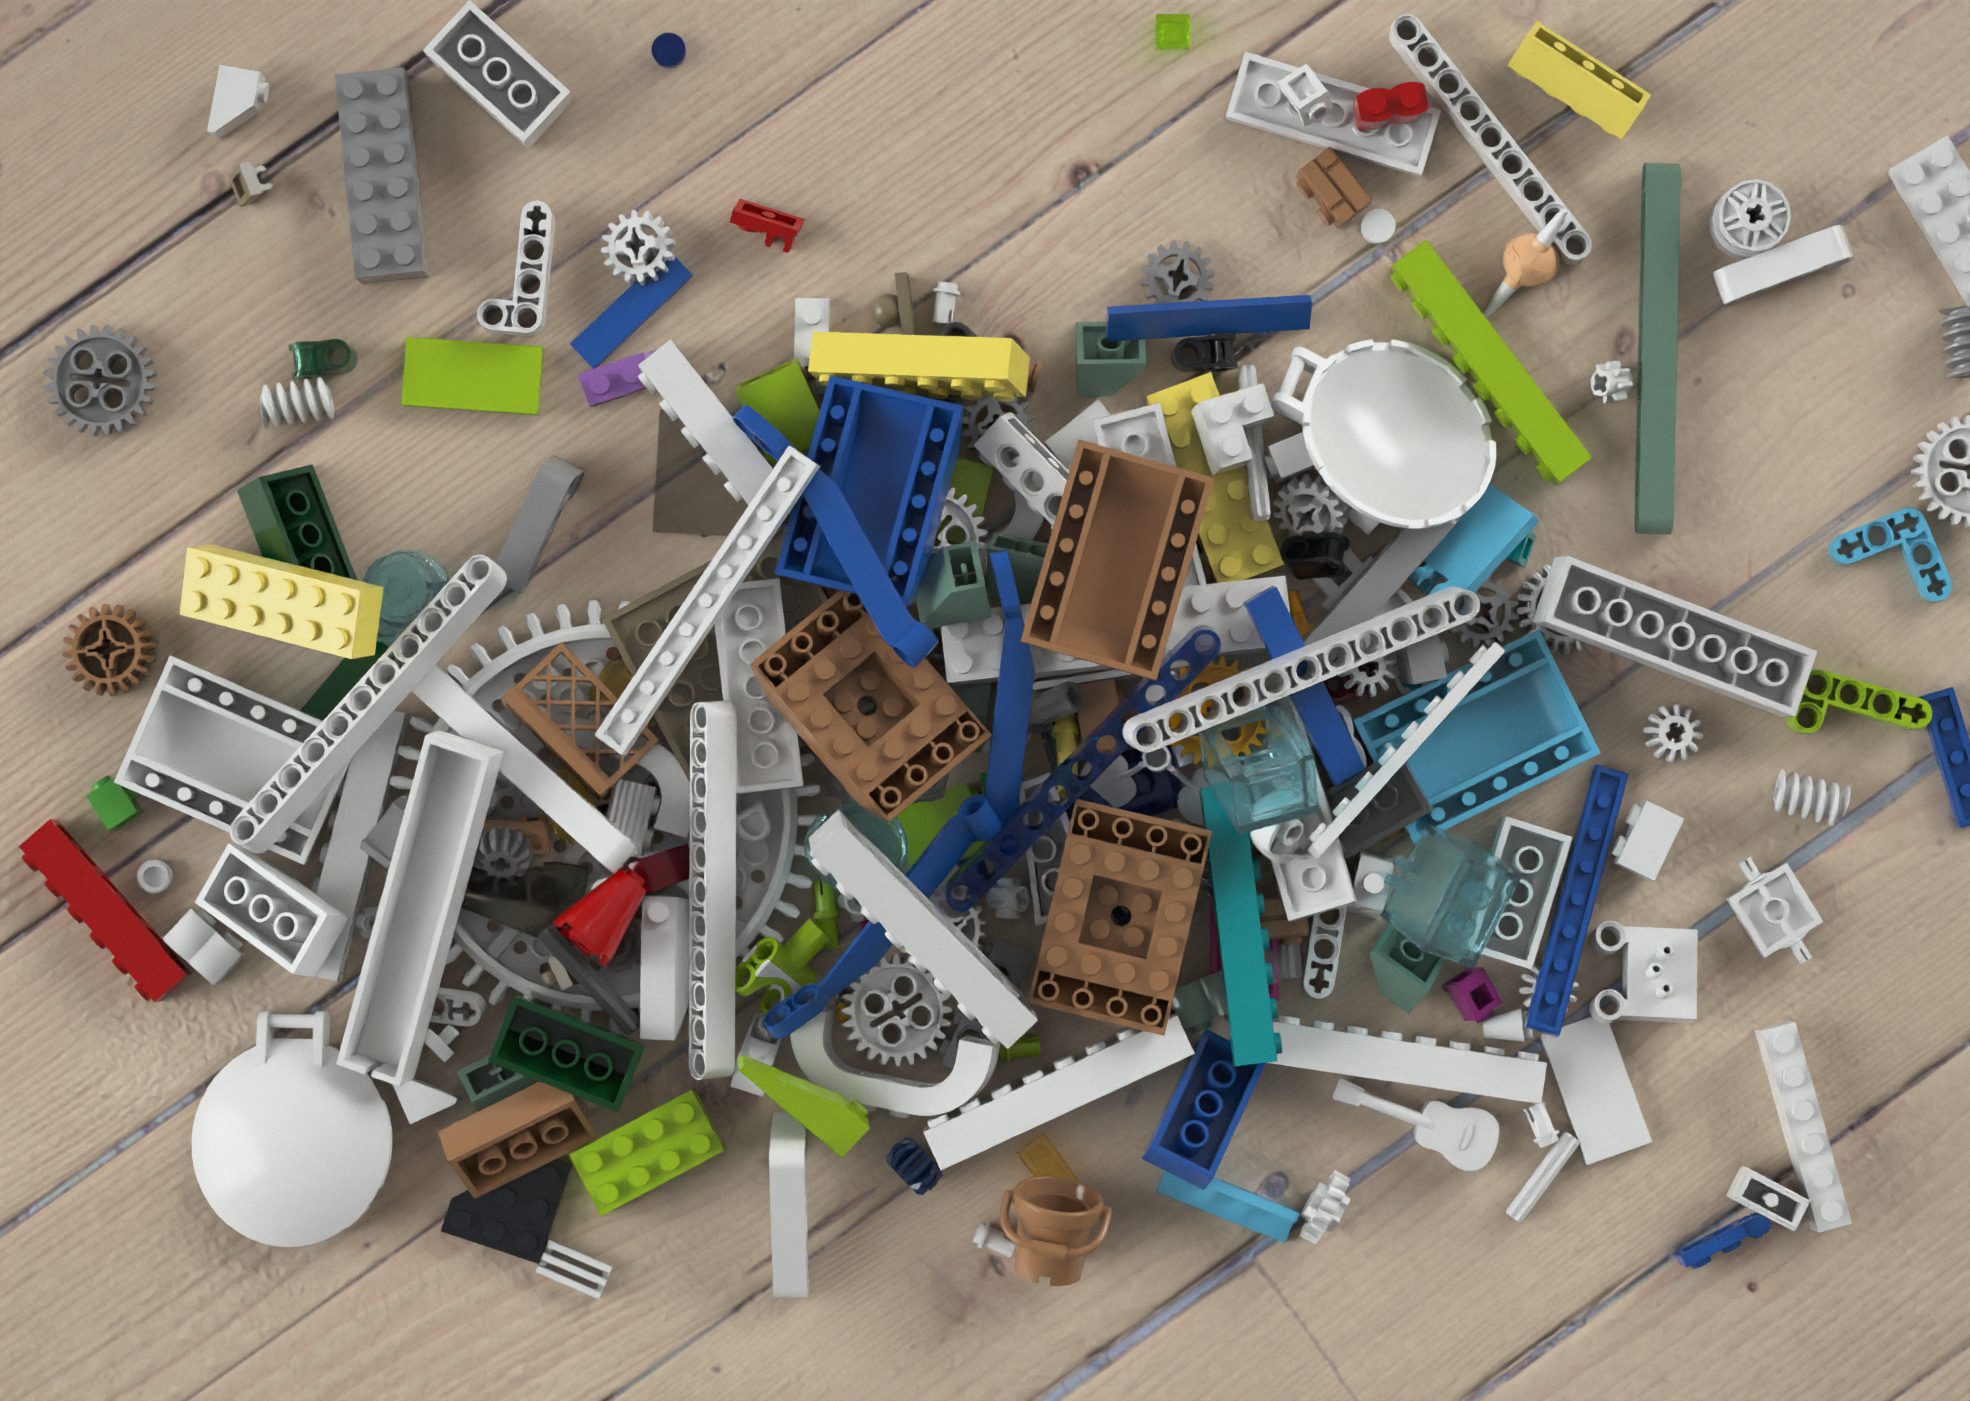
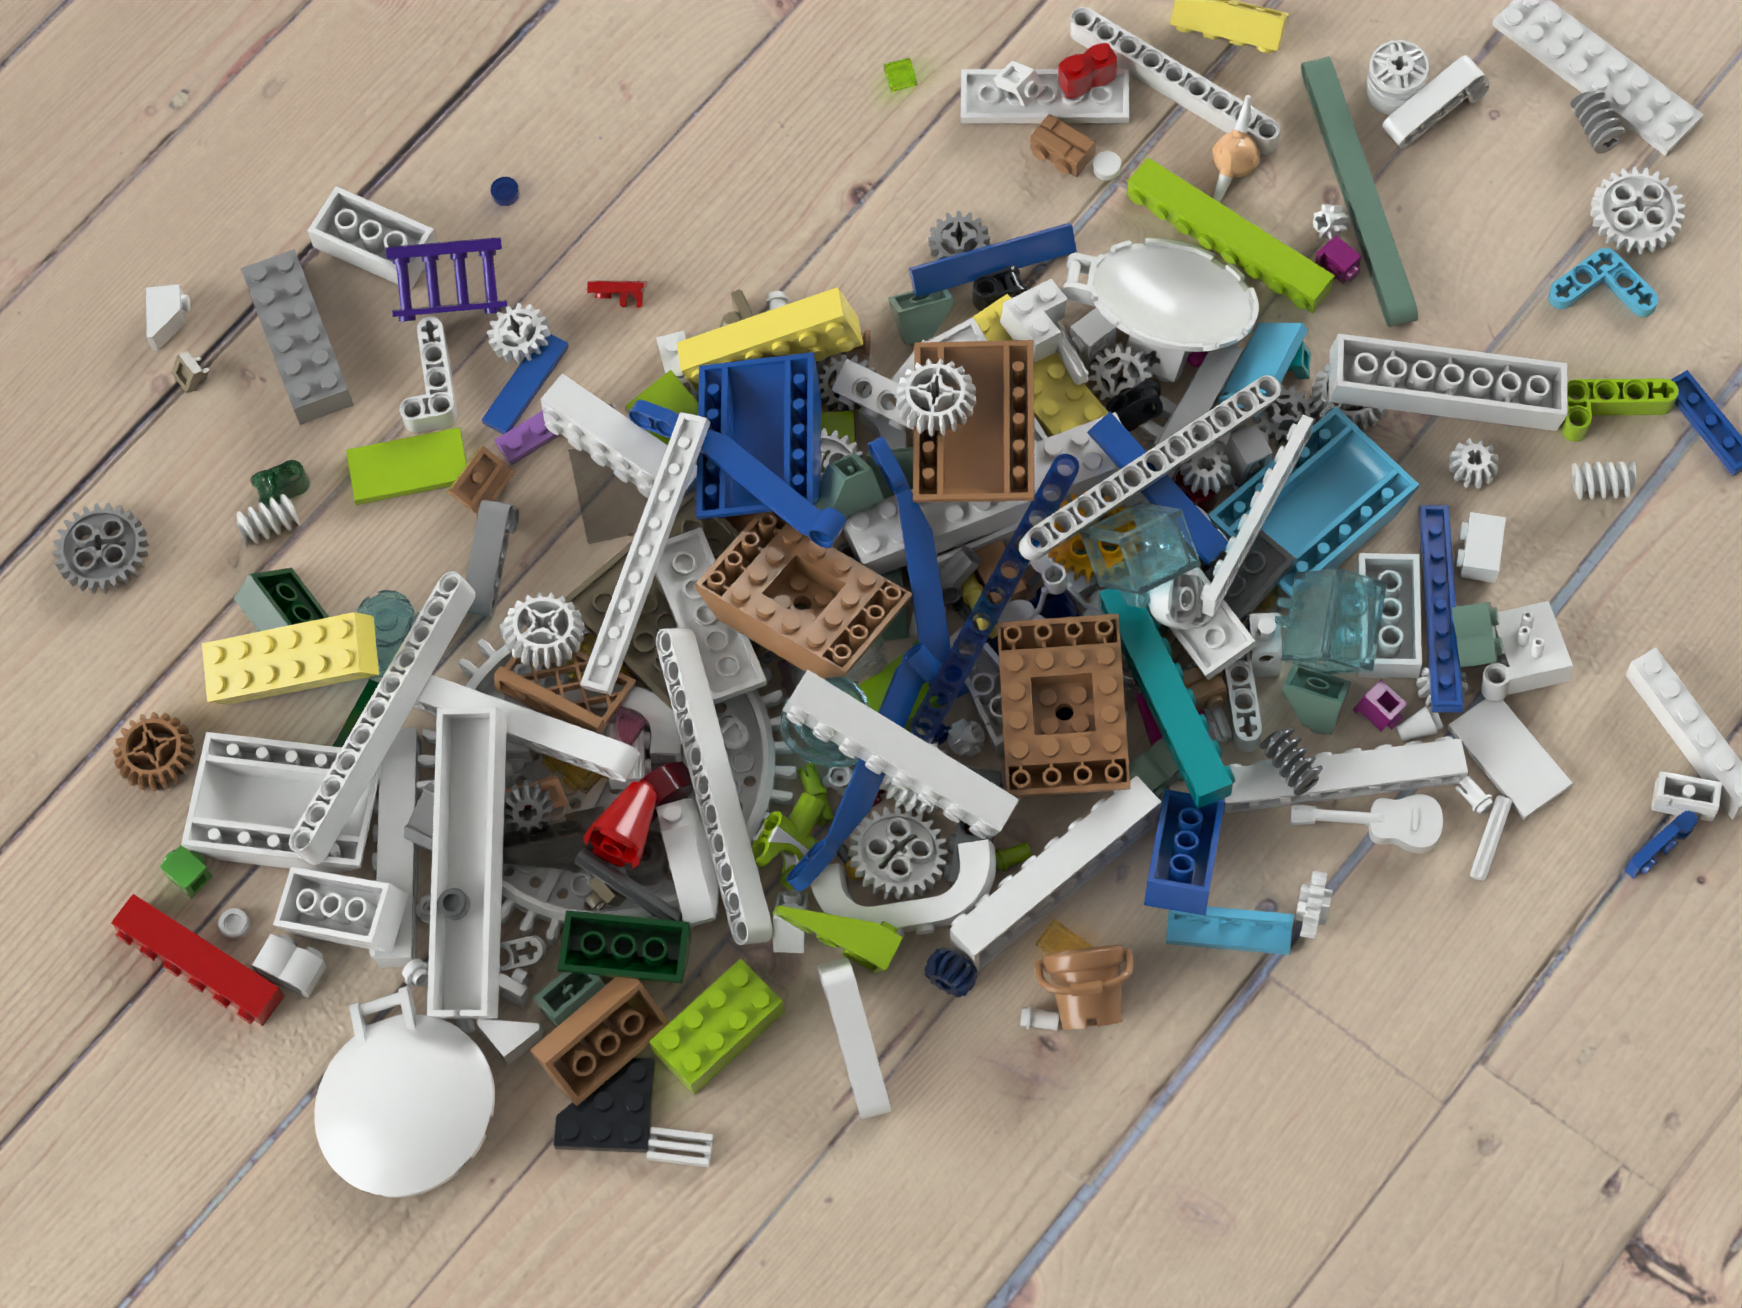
camera: 10 degrees left, 20 degrees down
(340, 994) = (416, 973): none -> white plate
(393, 952) = (453, 904): none -> dark grey tile
(549, 425) = (480, 480): none -> medium nougat plate
(556, 629) = (542, 641): none -> white gear
(561, 126) = (458, 252): none -> dark purple fence
(637, 791) = (629, 725): none -> clear pink tile
(1096, 530) = (921, 388): none -> white gear
(1354, 1041) = (1291, 760): none -> dark grey piece
(1603, 954) = (1476, 634): none -> sand green brick
(1605, 434) = (1339, 260): none -> magenta brick
(1774, 910) = (1607, 574): white plate -> none

